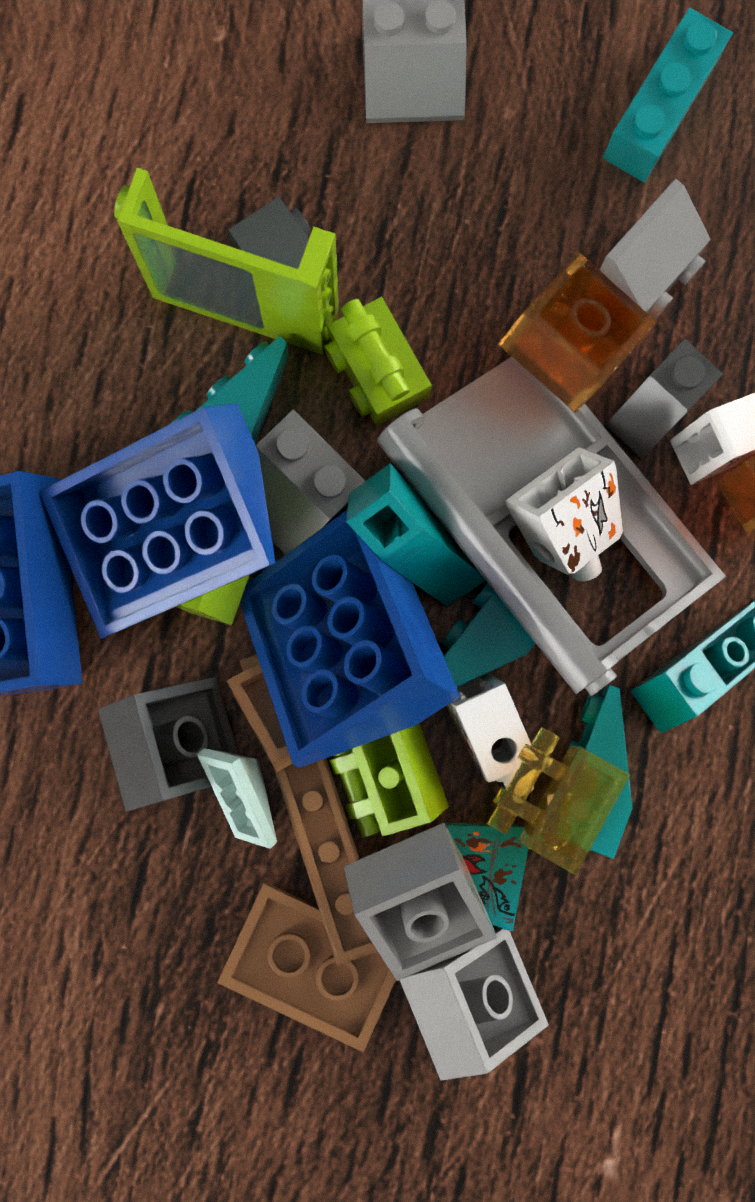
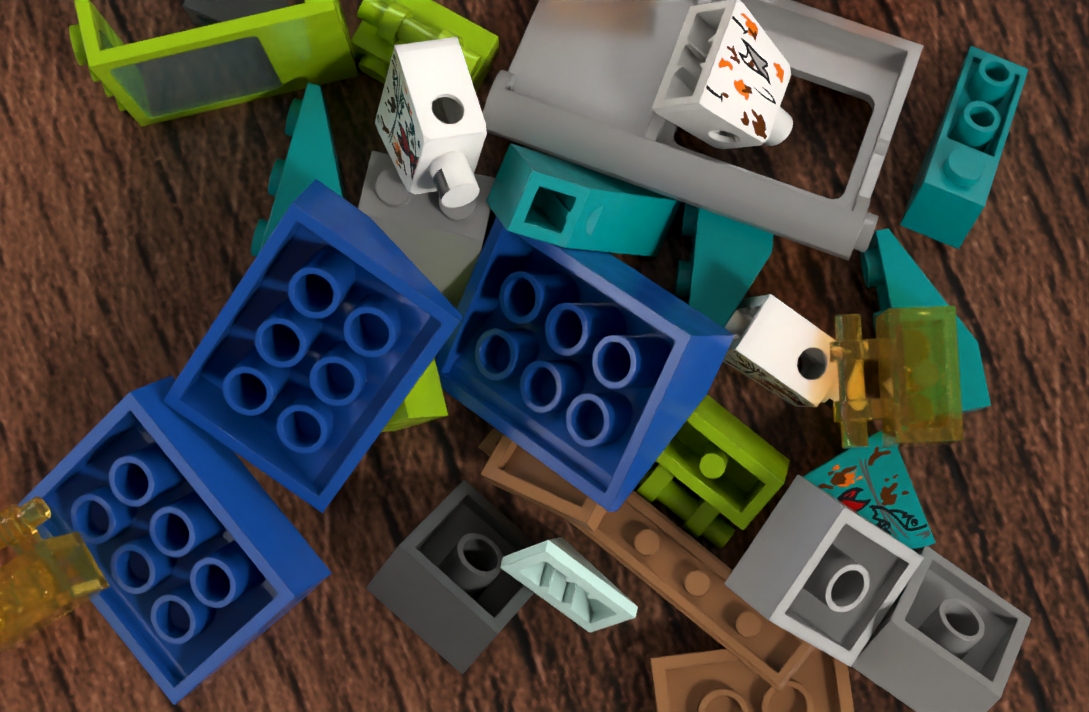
camera: 25 degrees left, 0 degrees up
(338, 432) = (432, 120): none -> white torso

